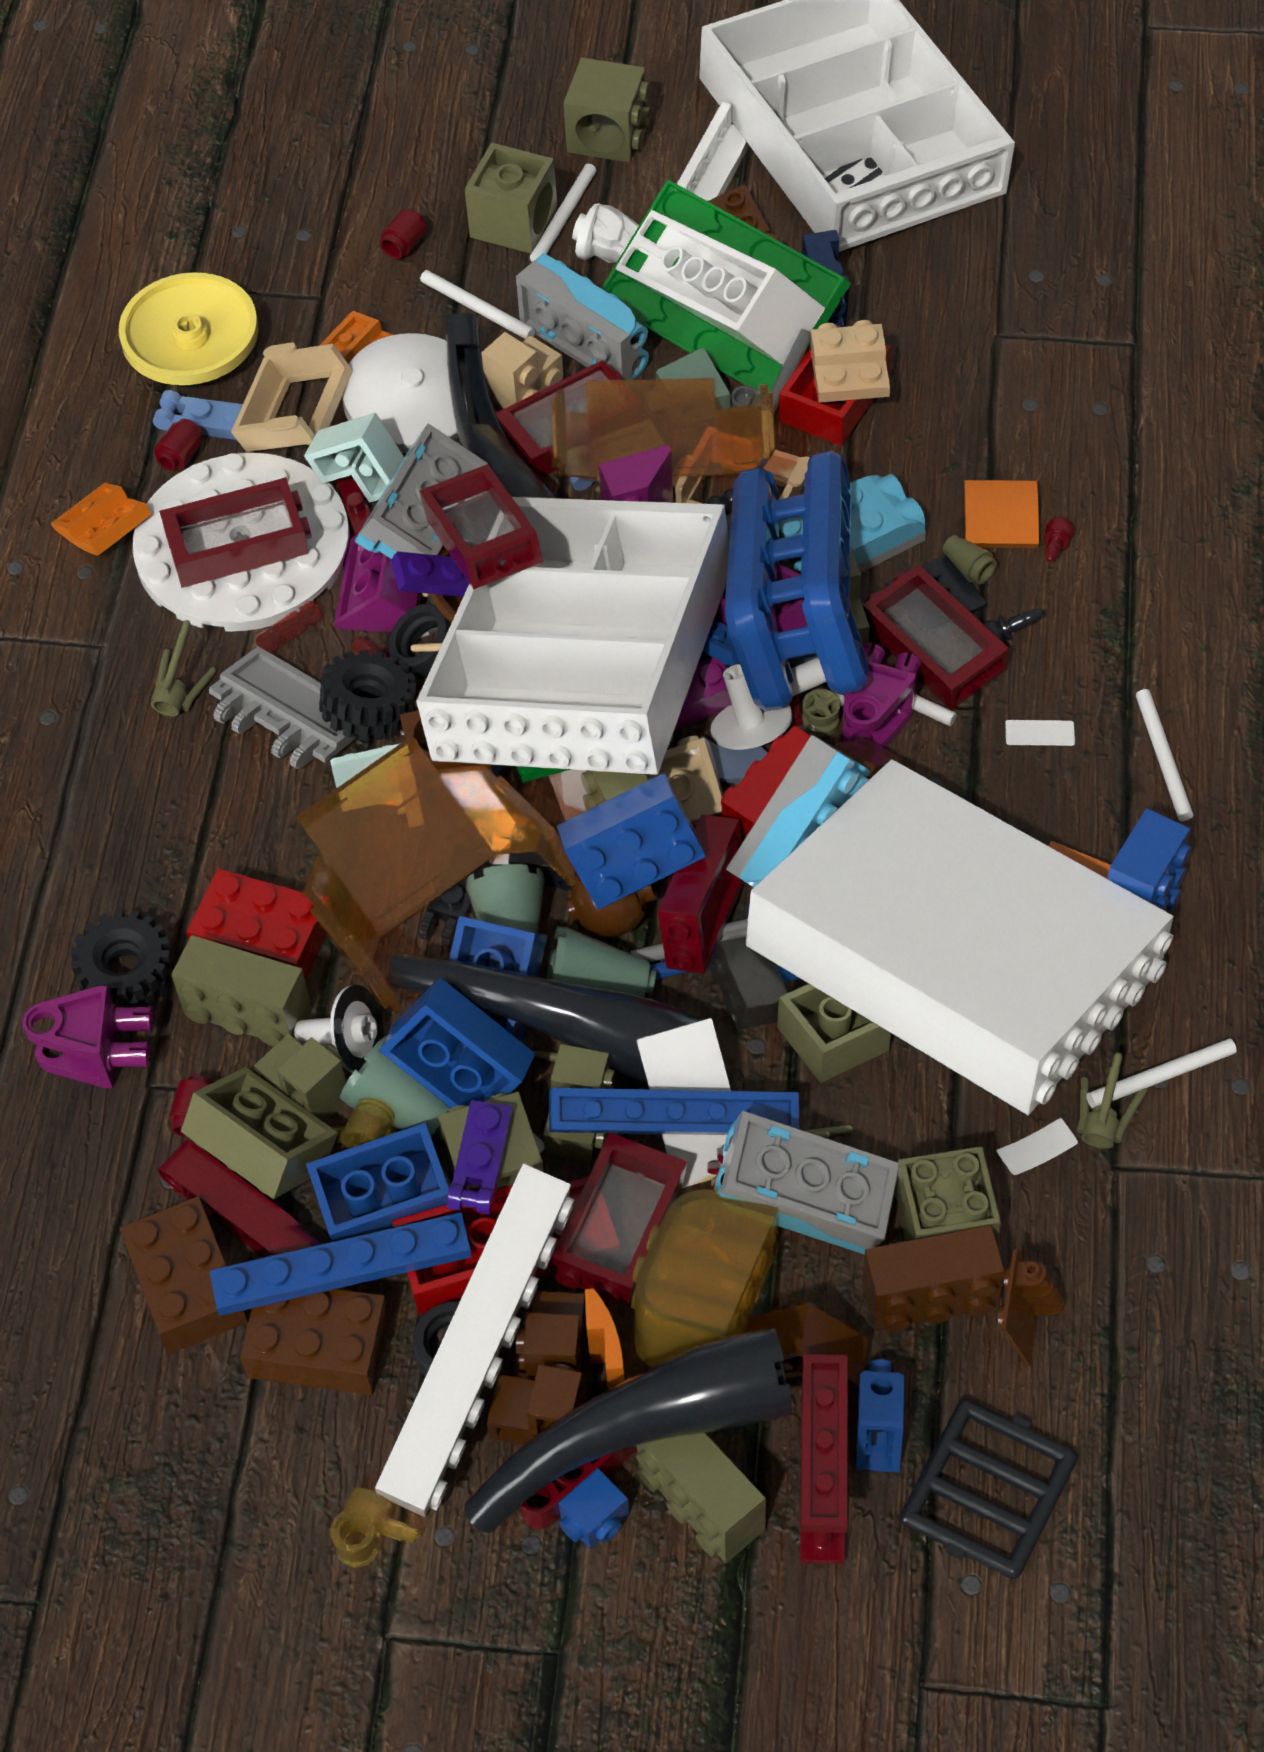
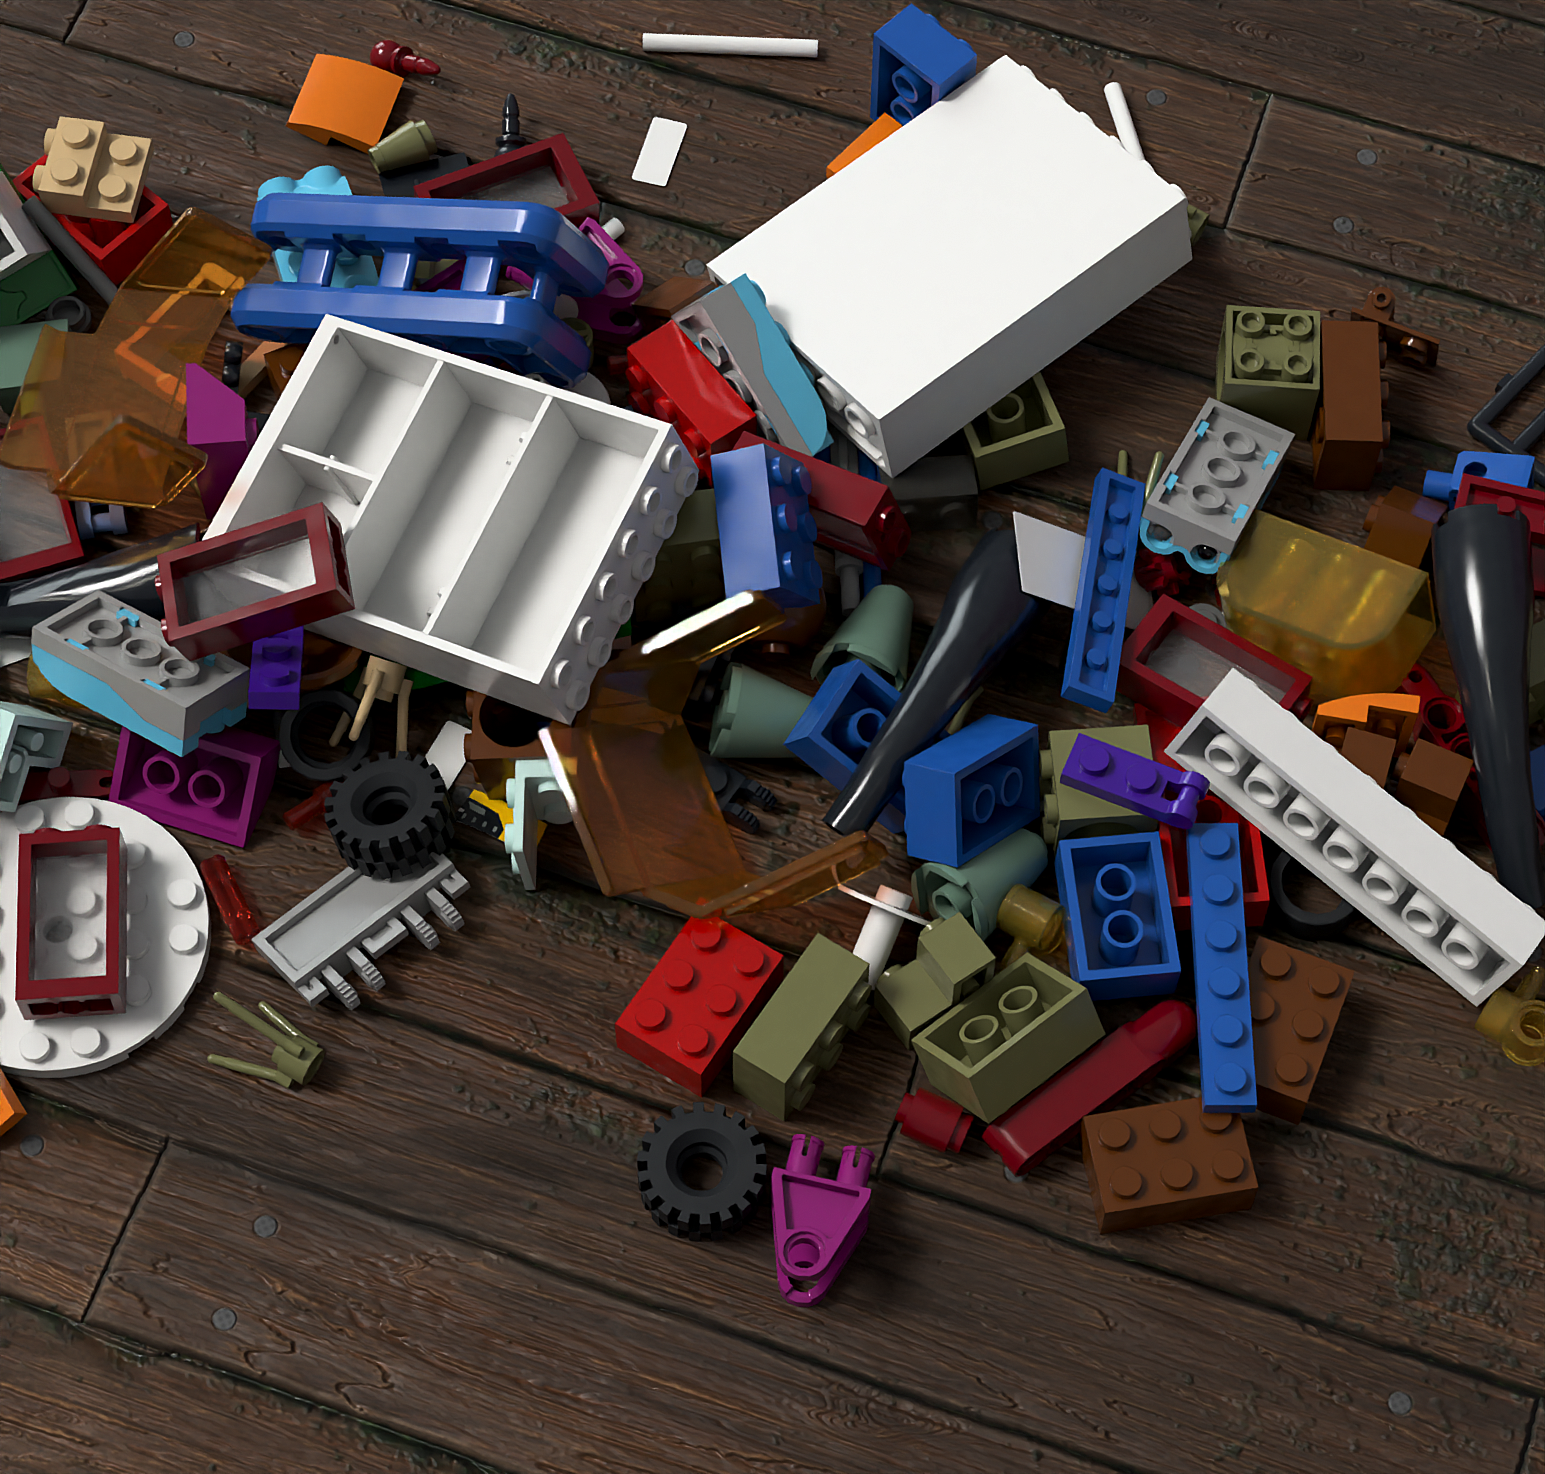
camera: 80 degrees left, 5 degrees up
(578, 1069) = (1031, 688): olive brick -> none
(1038, 1147) = (1190, 295): white sticker -> none

